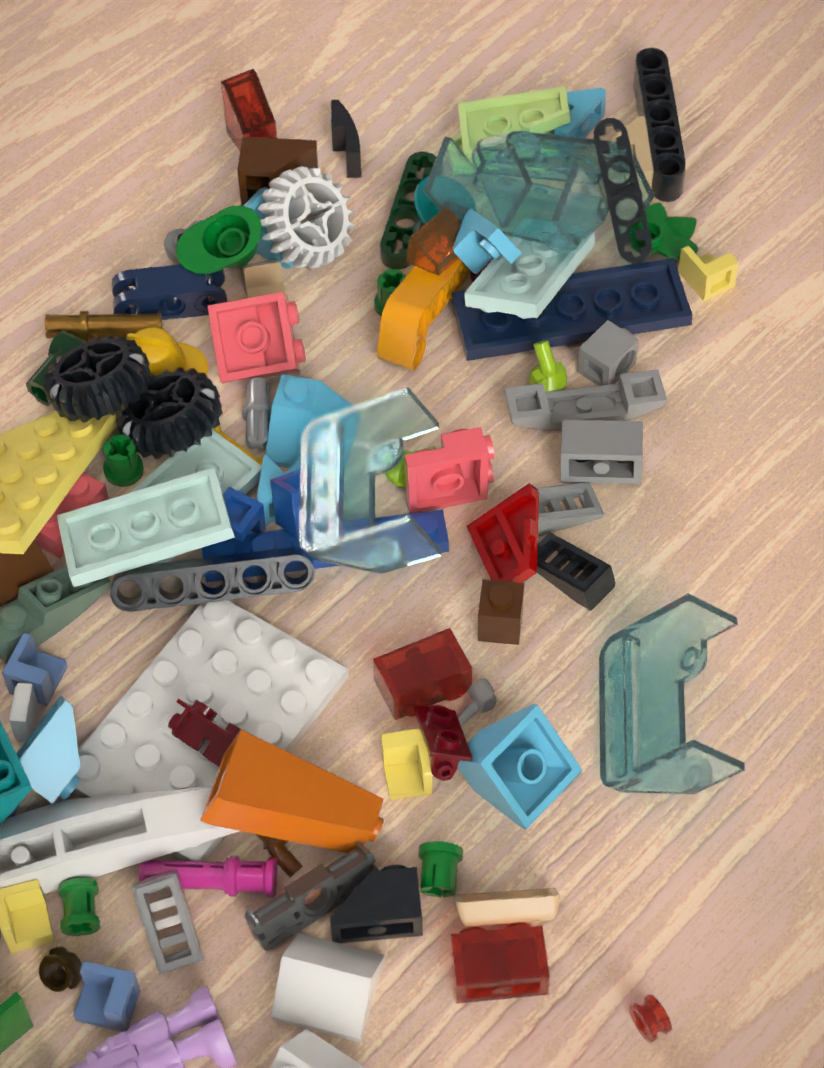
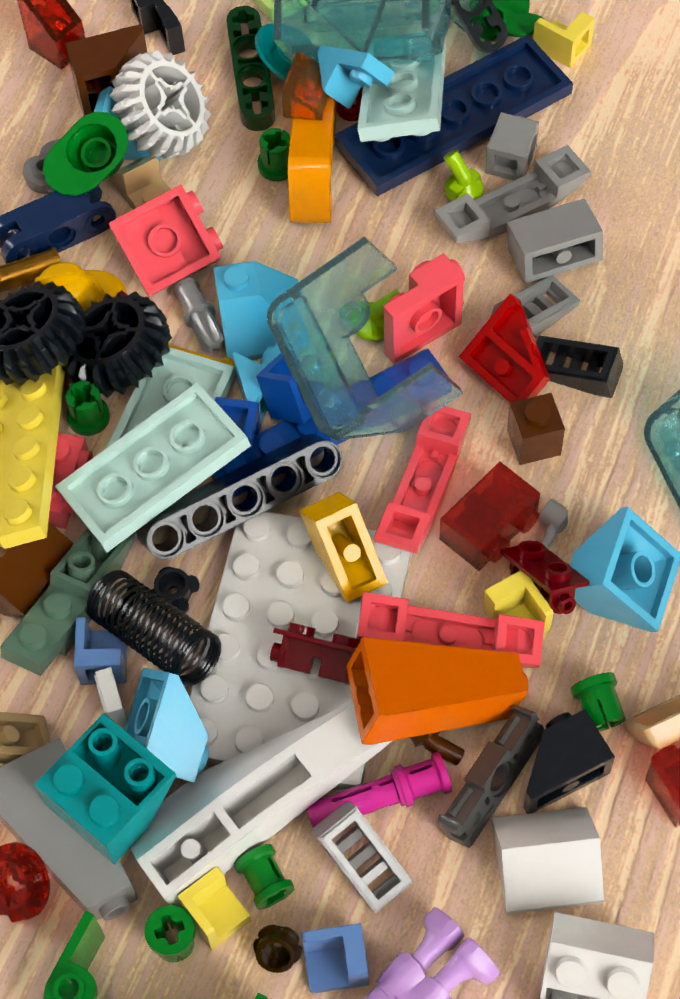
camera: 20 degrees left, 5 degrees up
(85, 634) = (125, 606): none -> black piece
(119, 631) = (175, 578): none -> black plate
(276, 653) = (344, 545): none -> yellow slope
(293, 733) = (396, 620): none -> coral slope
(383, 624) = (424, 480): none -> coral slope

